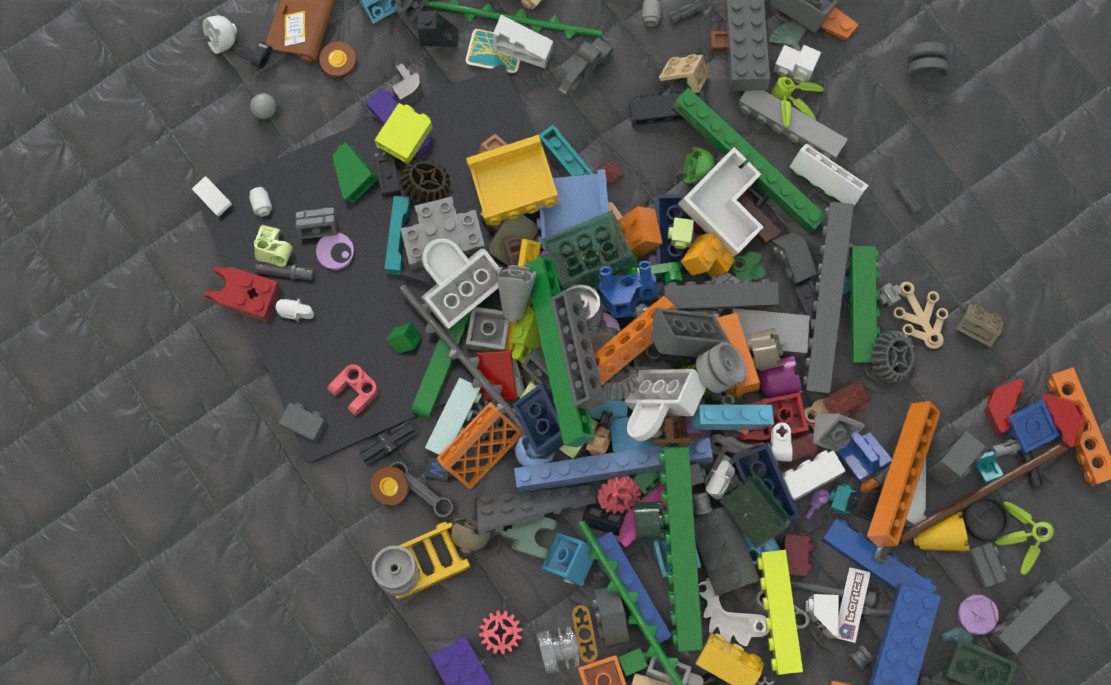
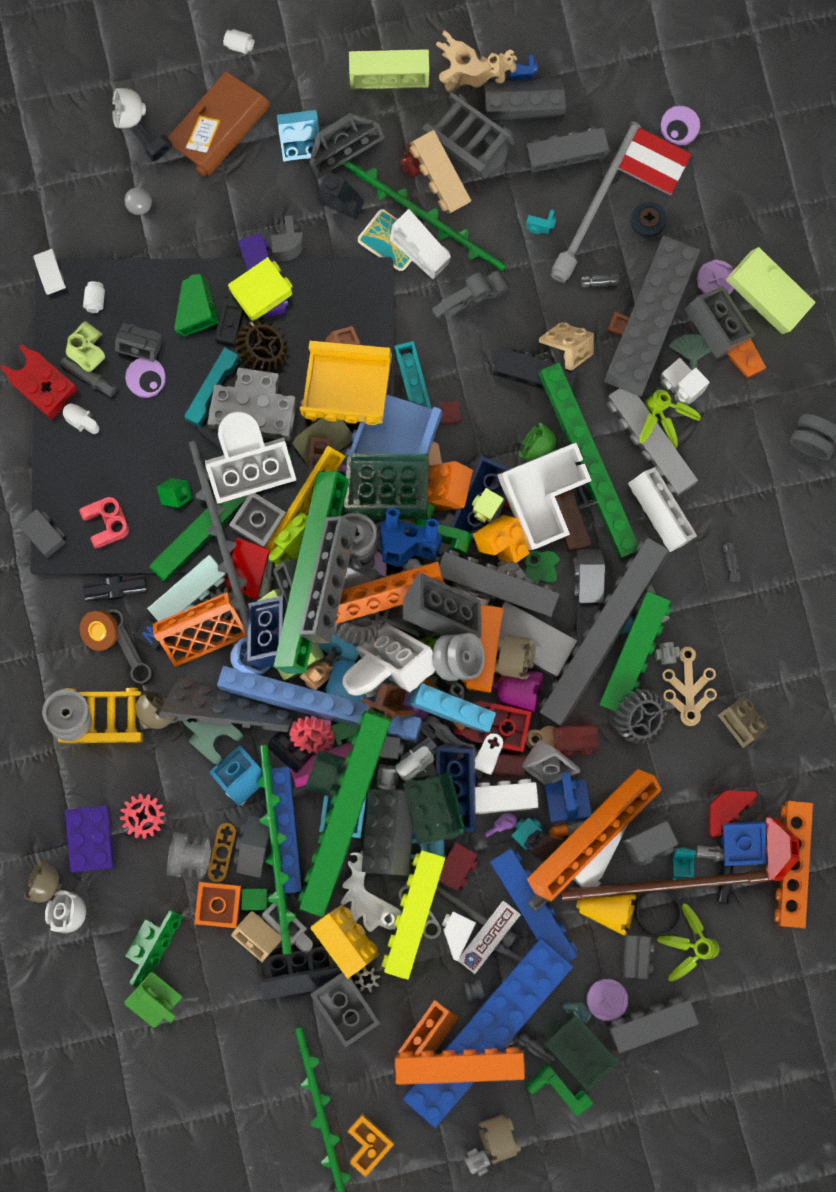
camera: 20 degrees right, 5 degrees up
(337, 59) = (232, 183): dark orange tile -> none
(514, 290) = (296, 493): light grey cone -> none

